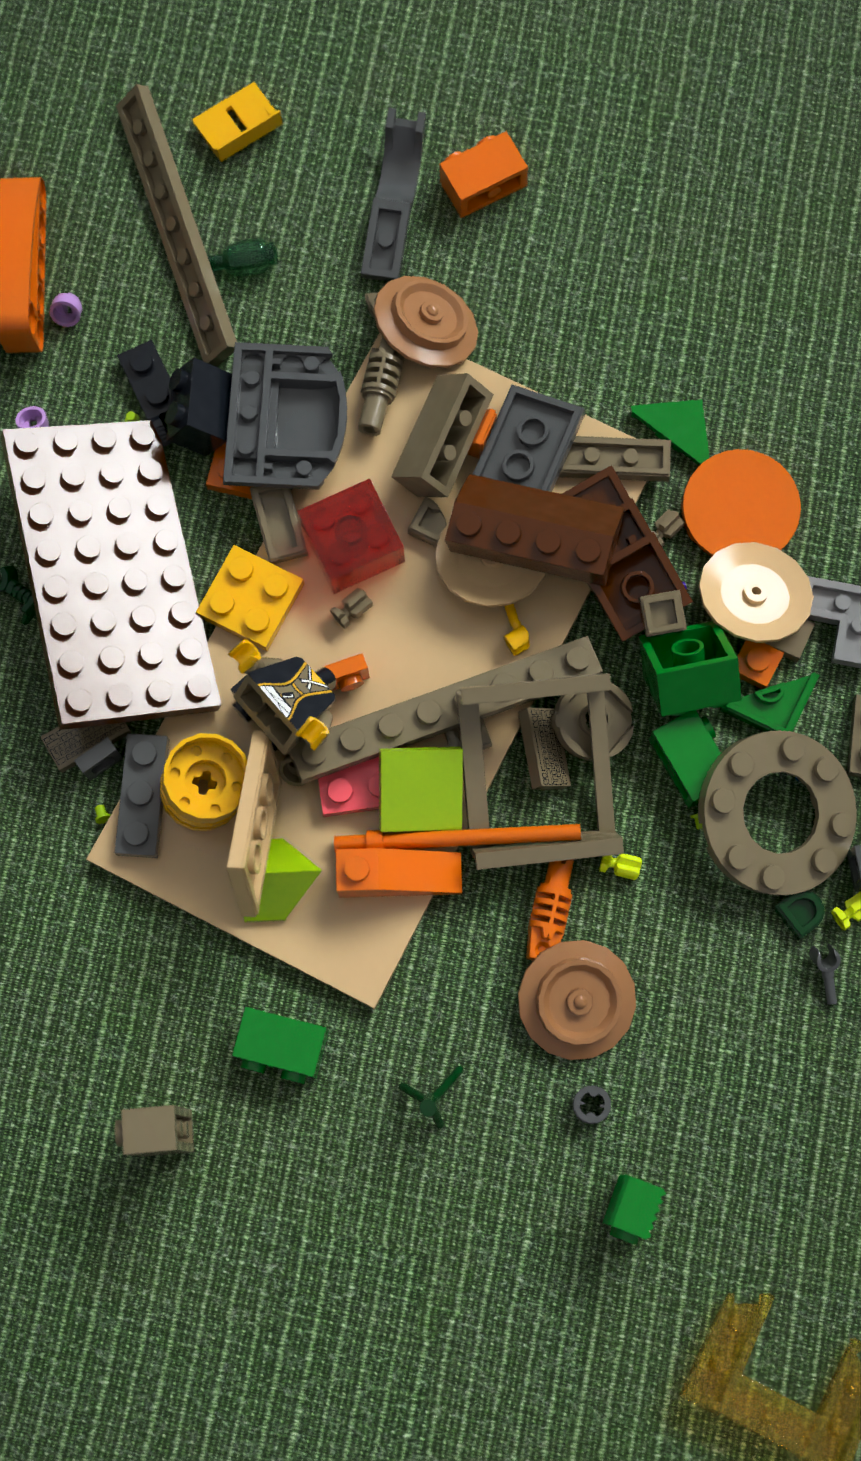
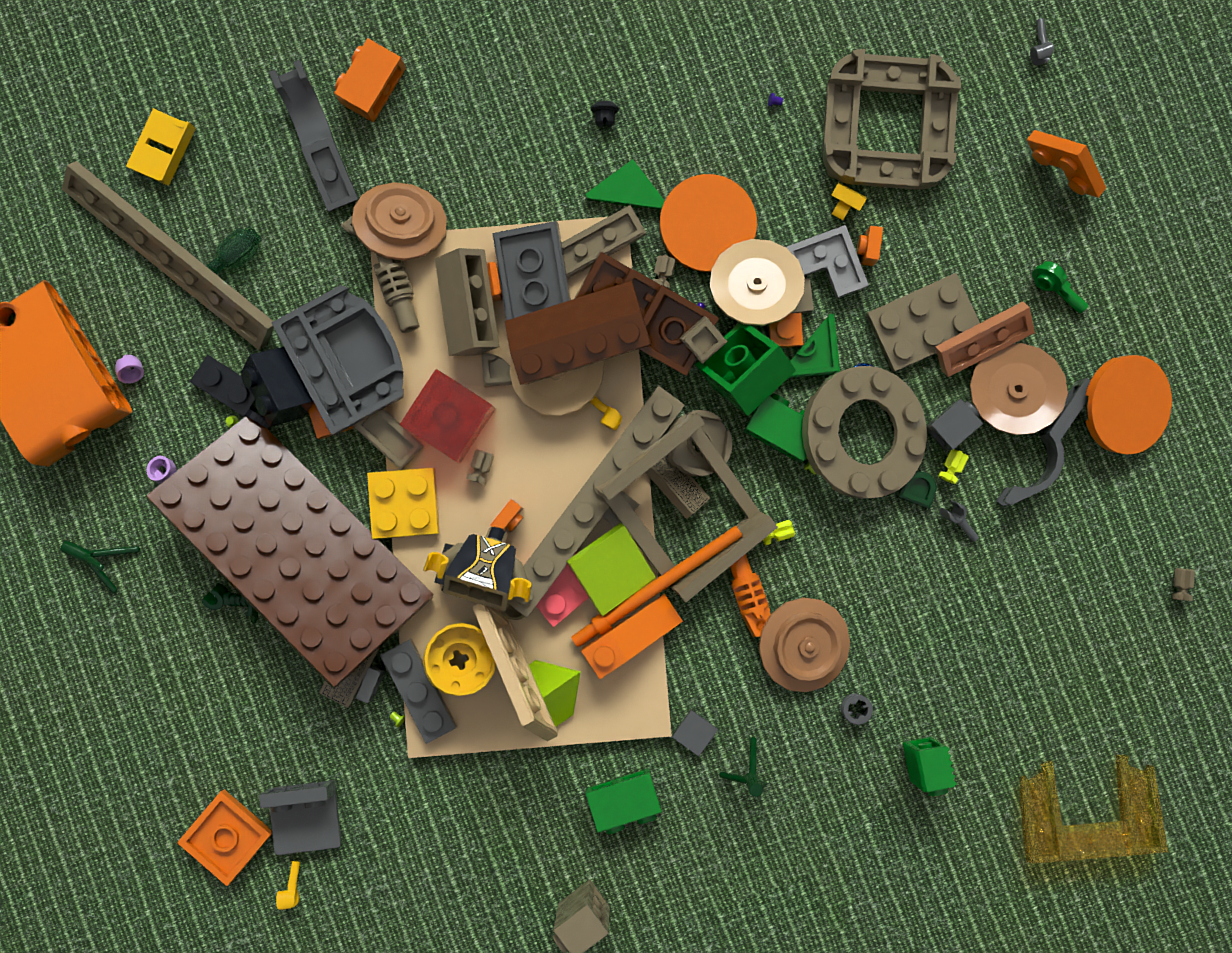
camera: 30 degrees left, 10 degrees up
(401, 1021) = (694, 732): none -> dark grey tile
(701, 339) = (604, 112): none -> black piece

